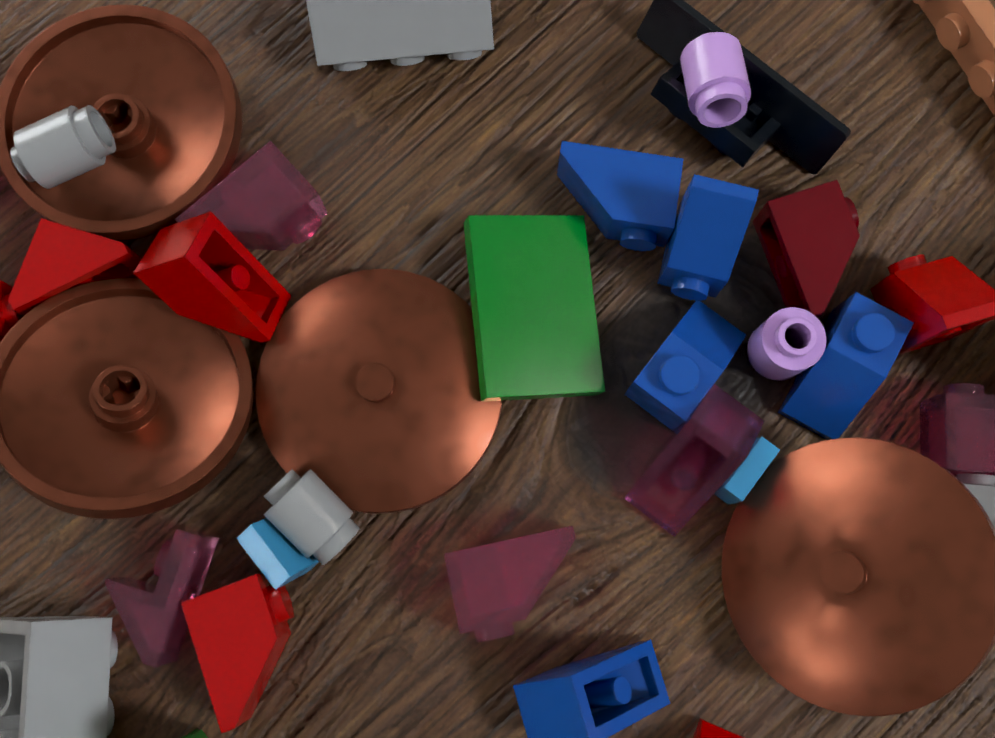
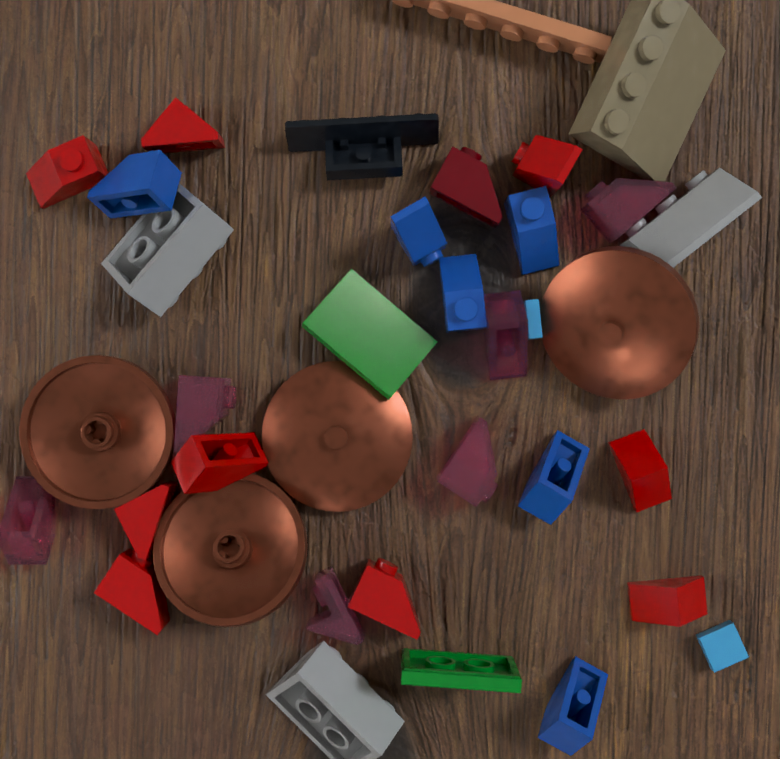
camera: 45 degrees left, 10 degrees up
(62, 146) = (93, 469): light grey brick -> none
(274, 553) = (364, 545): dark azure tile -> none
(310, 515) = (364, 519): light grey brick -> none
(624, 192) = (361, 240): blue slope -> none
(715, 79) = (353, 150): lavender brick -> none
(786, 344) = (490, 254): lavender brick -> none

